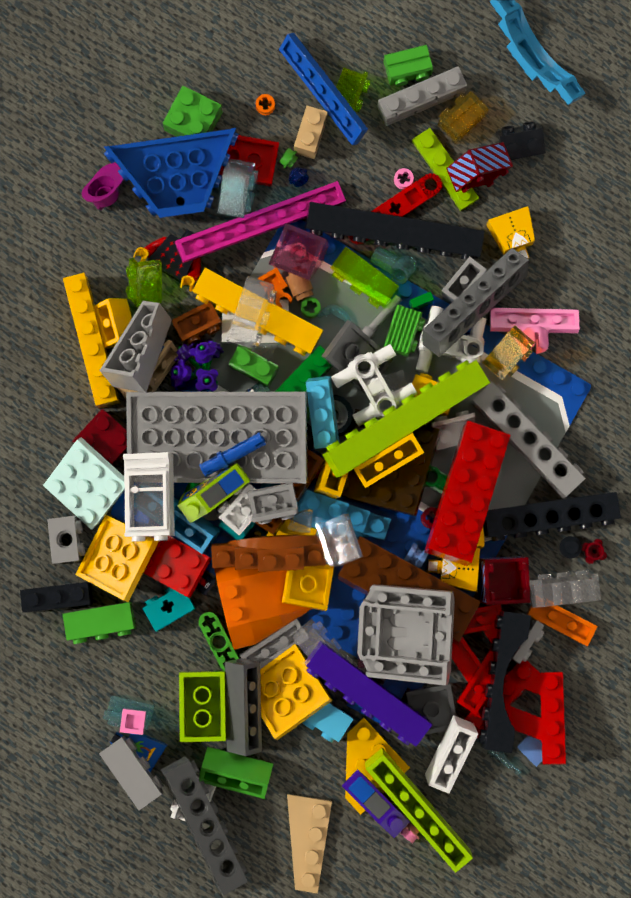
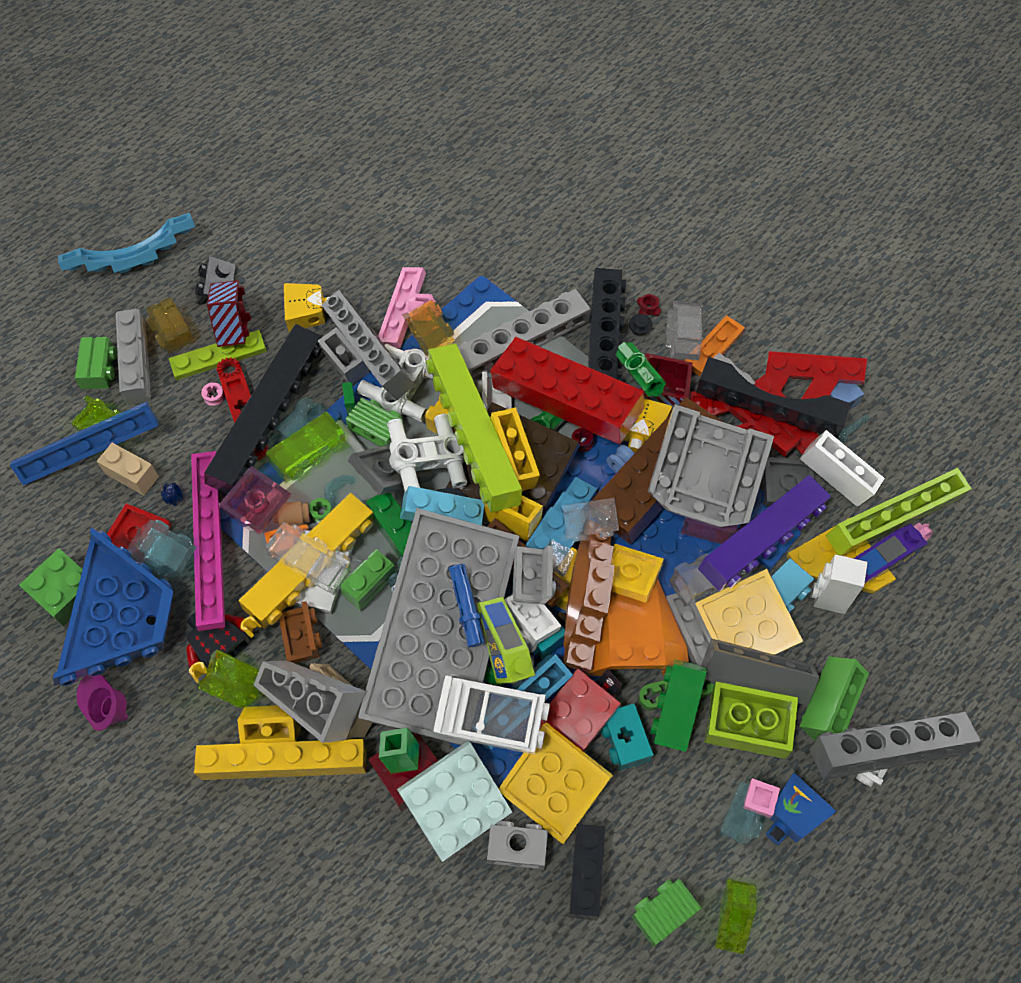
camera: 75 degrees left, 20 degrees down
(41, 663) = (665, 912): none -> bright green brick
(49, 717) = (736, 916): none -> clear neon green slope
(99, 622) = (628, 825): bright green brick -> none
(106, 431) = (399, 750): none -> green brick
(132, 772) = (822, 815): light grey brick -> none
(200, 644) = (678, 705): none -> green brick
(203, 353) = (354, 649): dark purple plant -> none
(270, 101) = (75, 505): orange bush -> none
(288, 158) = (147, 499): bright green plate -> none
(308, 837) = (911, 639): tan wing -> none
(332, 763) = (839, 584): none -> white brick
(500, 555) = (640, 369): none -> green piece

